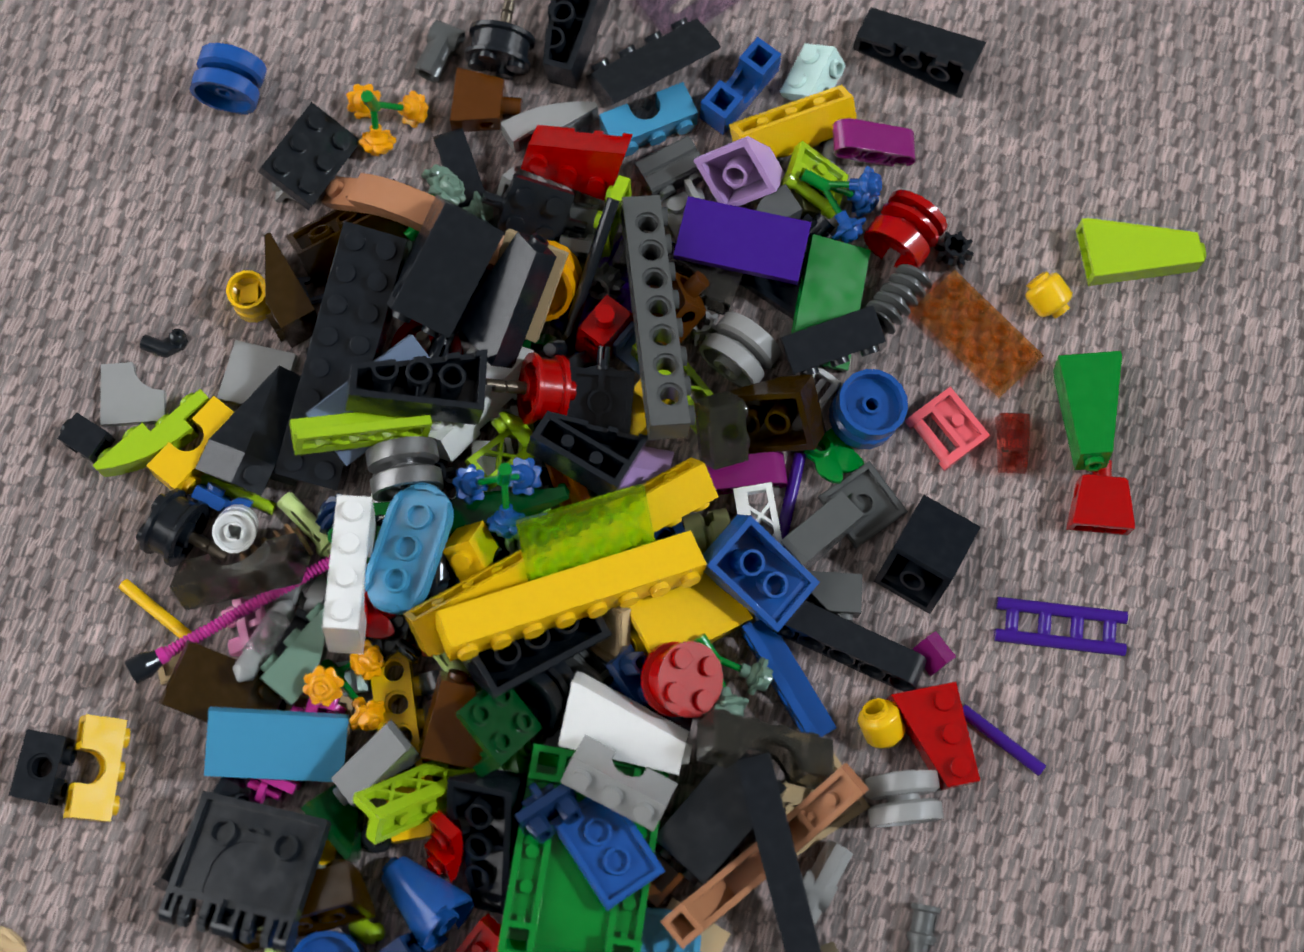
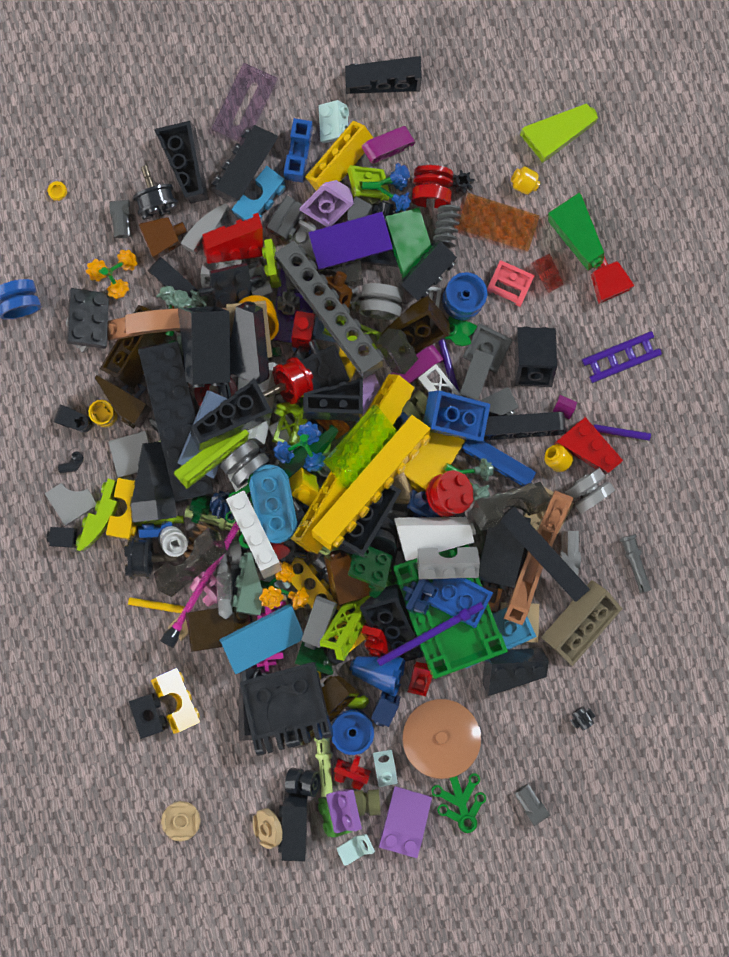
camera: 30 degrees left, 10 degrees up
(203, 281) = (70, 418): none -> black piece
(304, 501) = (199, 506): none -> dark green plate
(566, 345) = (286, 346): black bar -> none
(599, 879) = (464, 614): none -> dark purple bar

